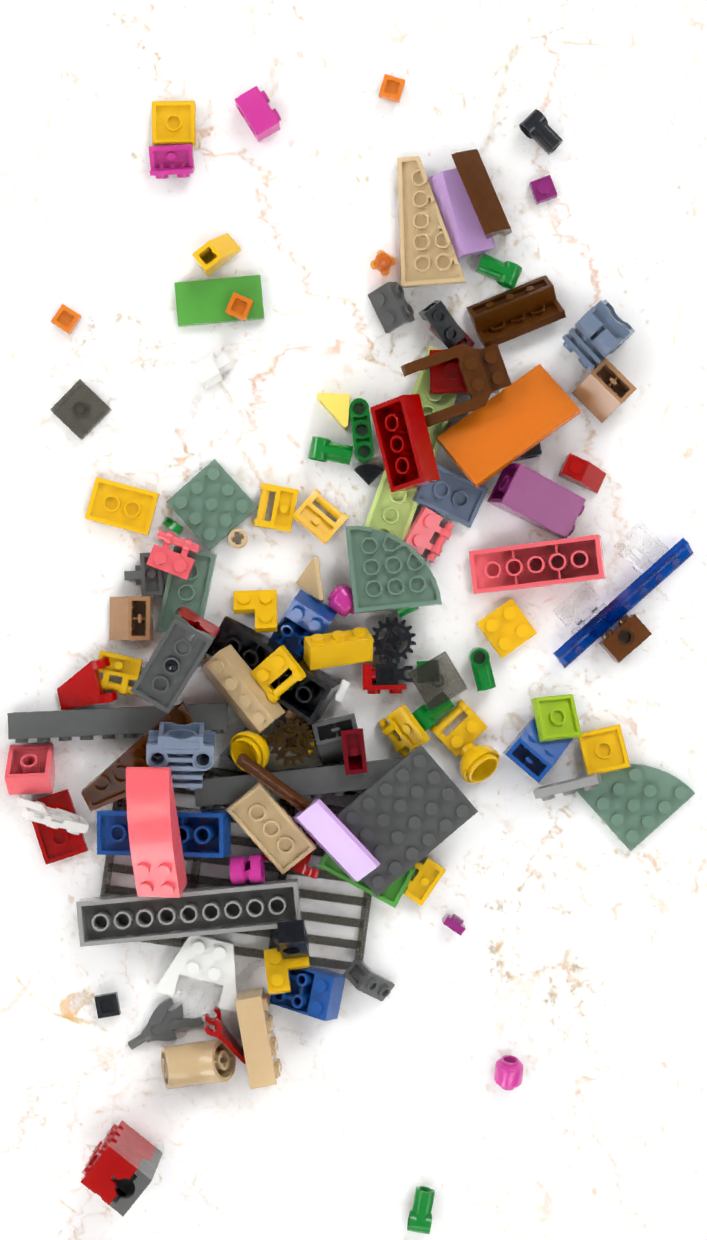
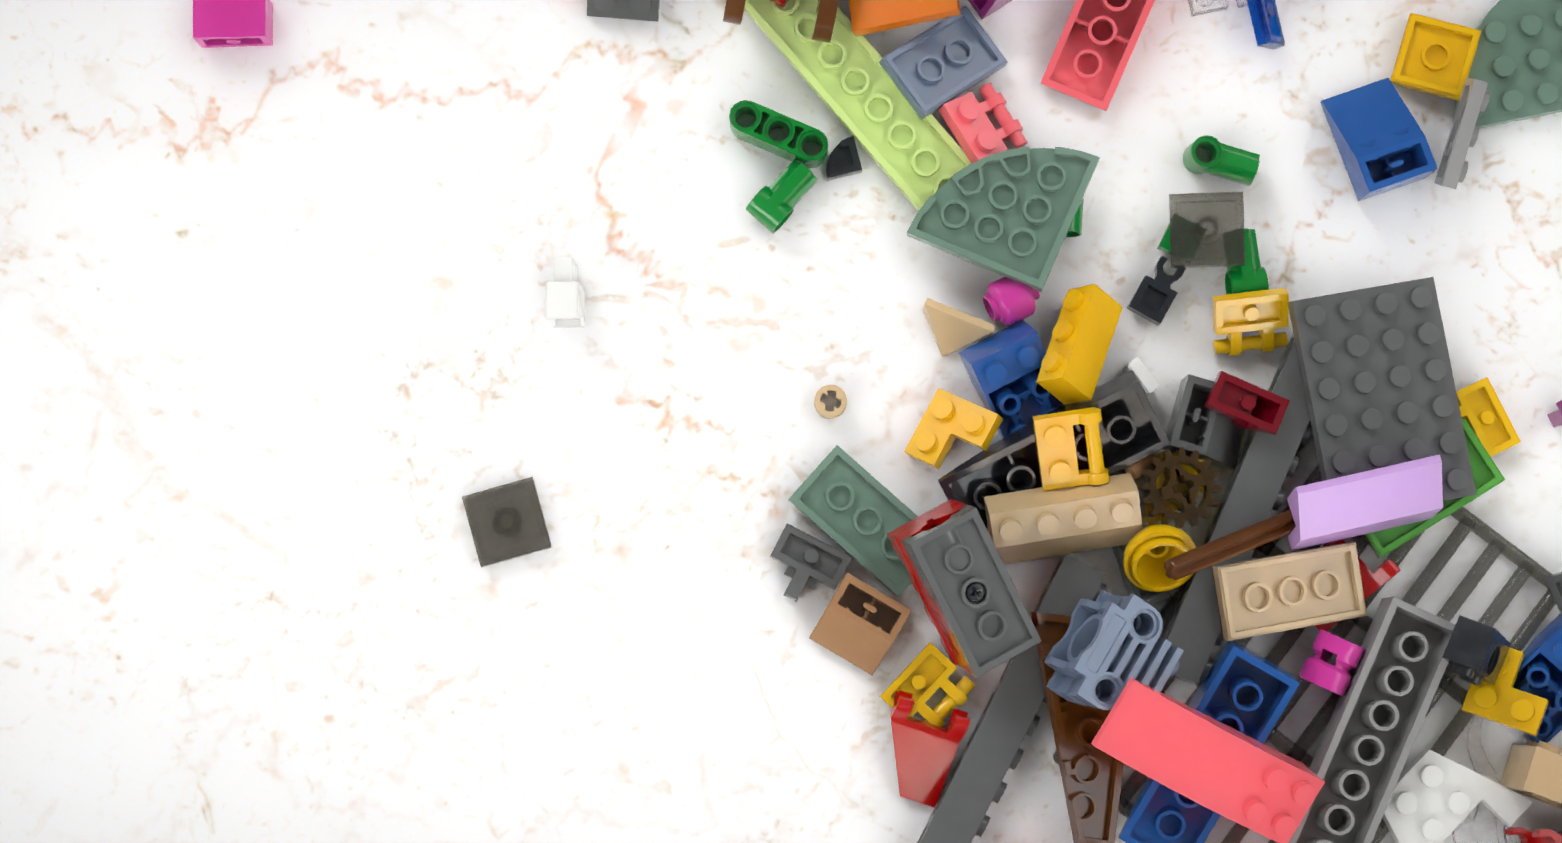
camera: 65 degrees left, 5 degrees down
(66, 319) = (362, 466): orange plate -> none
(122, 506) = (685, 542): yellow plate -> none
(170, 561) = (810, 515): coral plate -> none
(171, 160) = (224, 180): dark pink bracket -> none
(173, 122) = (172, 147): yellow plate -> none
(173, 525) = (760, 483): green tile -> none
(206, 300) = (468, 230): bright green tile -> none
(212, 504) = (759, 410): sand green plate -> none
(216, 253) = (399, 194): yellow slope -> none
(239, 307) = (497, 203): orange plate -> none
(283, 507) = (824, 310): yellow plate -> none
(316, 521) = (871, 272): yellow plate -> none
(337, 406) = (724, 149): light yellow slope -> none
(369, 675) = (1140, 326): red bracket -> none
(402, 637) = (1122, 265): black gear -> none
(405, 443) = (838, 75): red brick -> none
(464, 732) = (1298, 239): yellow plate -> none
(478, 762) = (1355, 241): yellow piece -> none
(506, 628) = (1181, 94): yellow plate -> none
(556, 717) = (1353, 94): lime tile -> none

